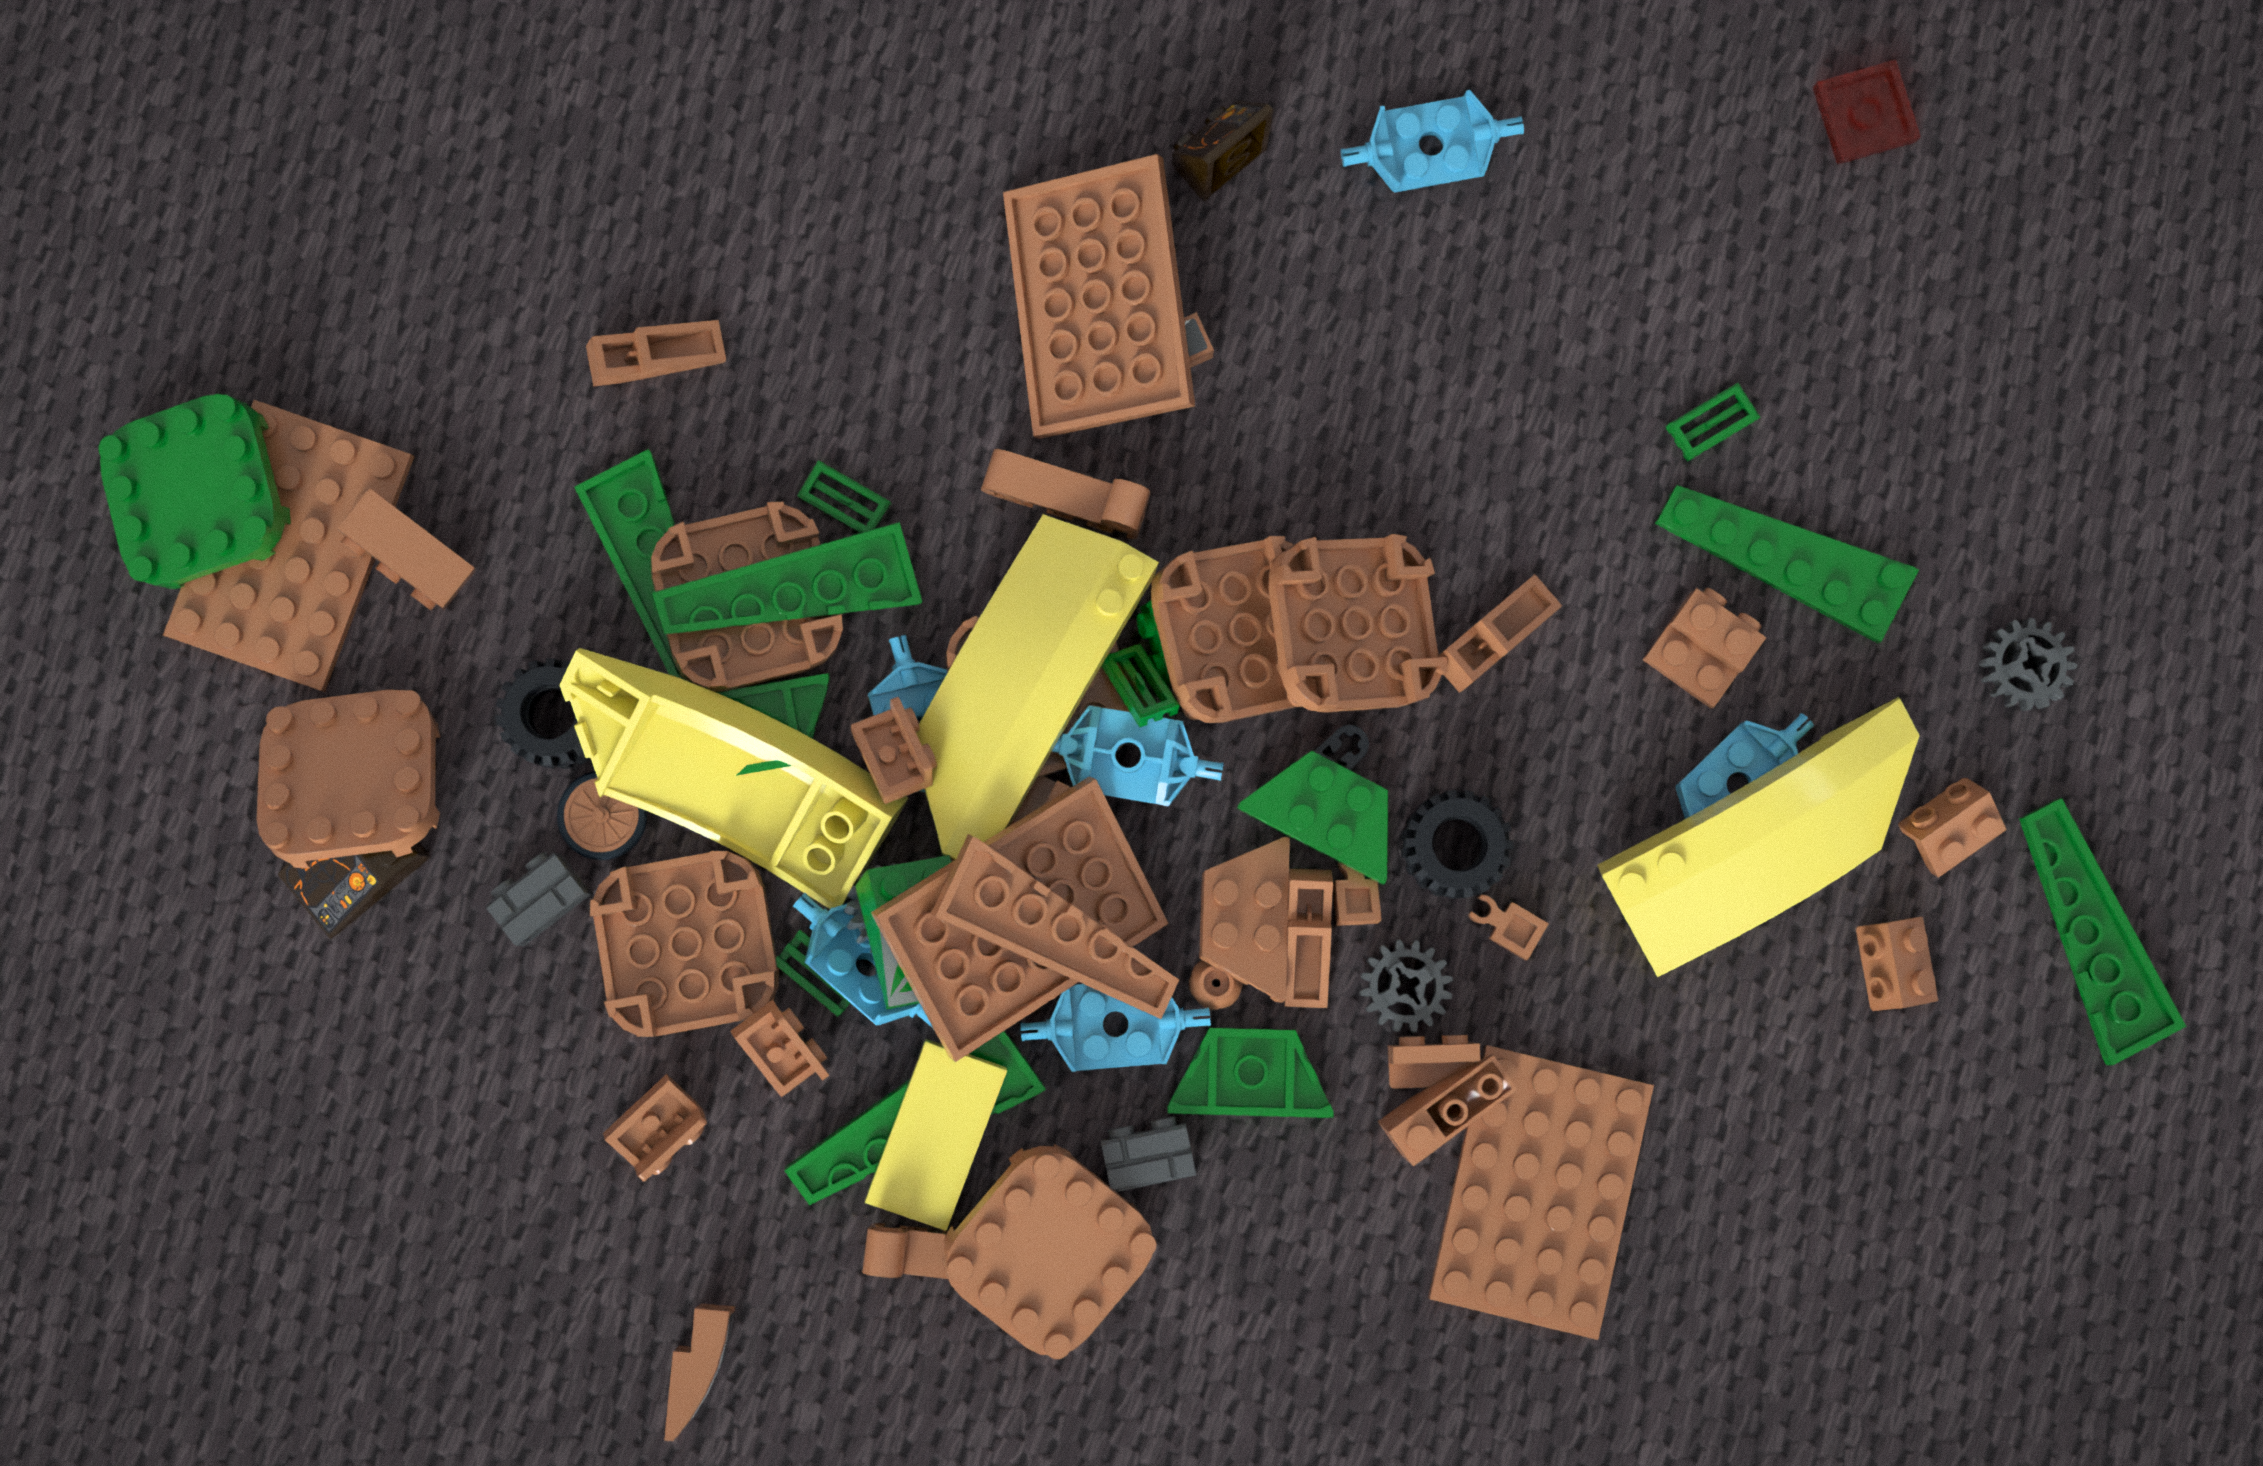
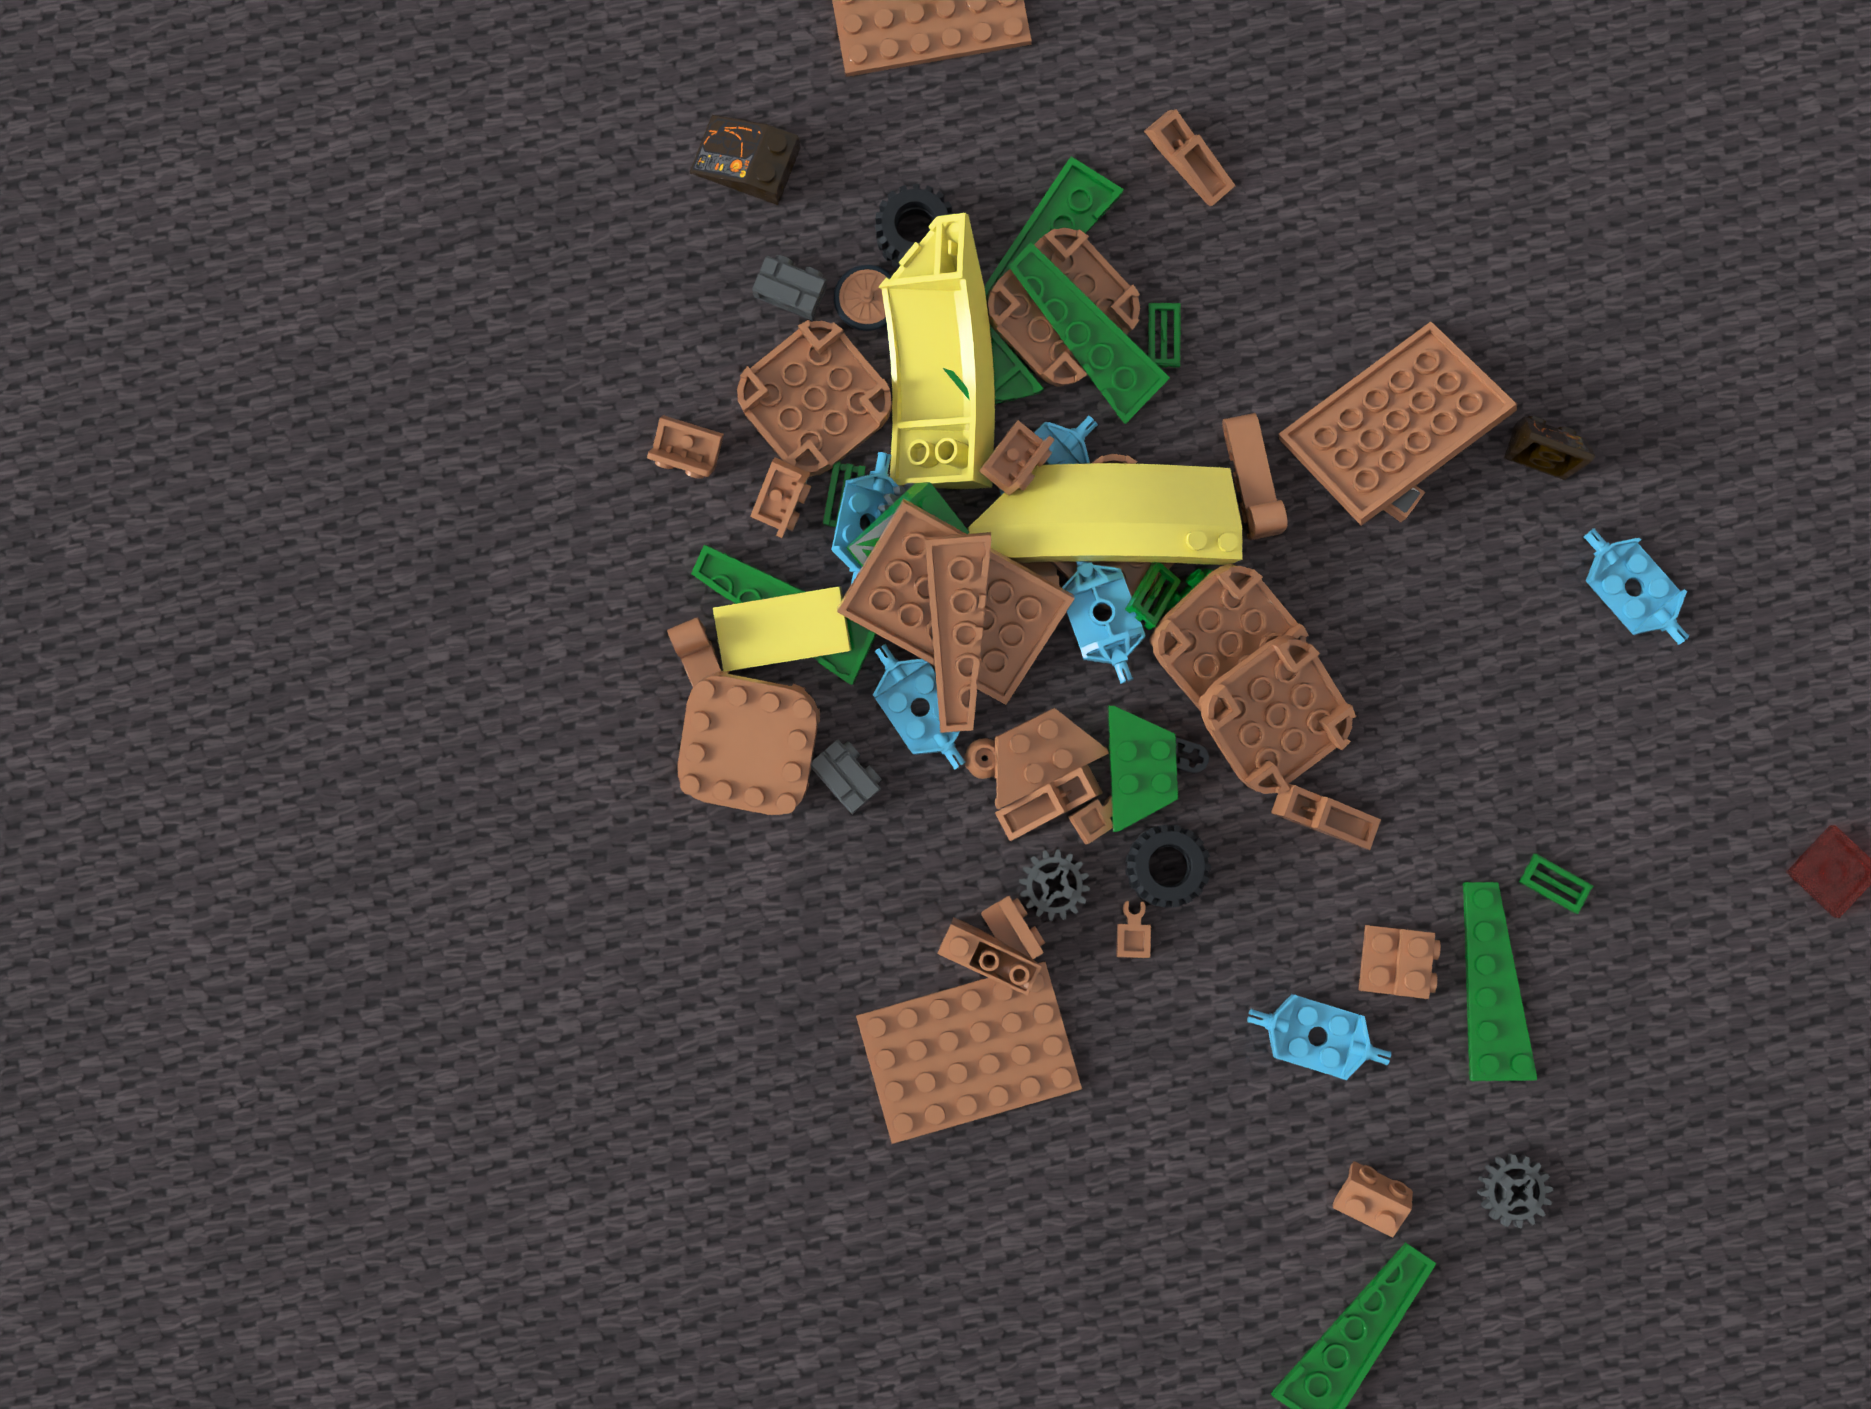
camera: 65 degrees right, 0 degrees up
(347, 776) = (800, 120): nougat plate -> none
(404, 551) = (966, 72): nougat brick -> none
(697, 1366) = (547, 561): nougat slope -> none
(1250, 1076) = (936, 815): green wing -> none
(1765, 841) = (1289, 1074): light yellow slope -> none
(1897, 964) = (1258, 1211): nougat bracket -> none

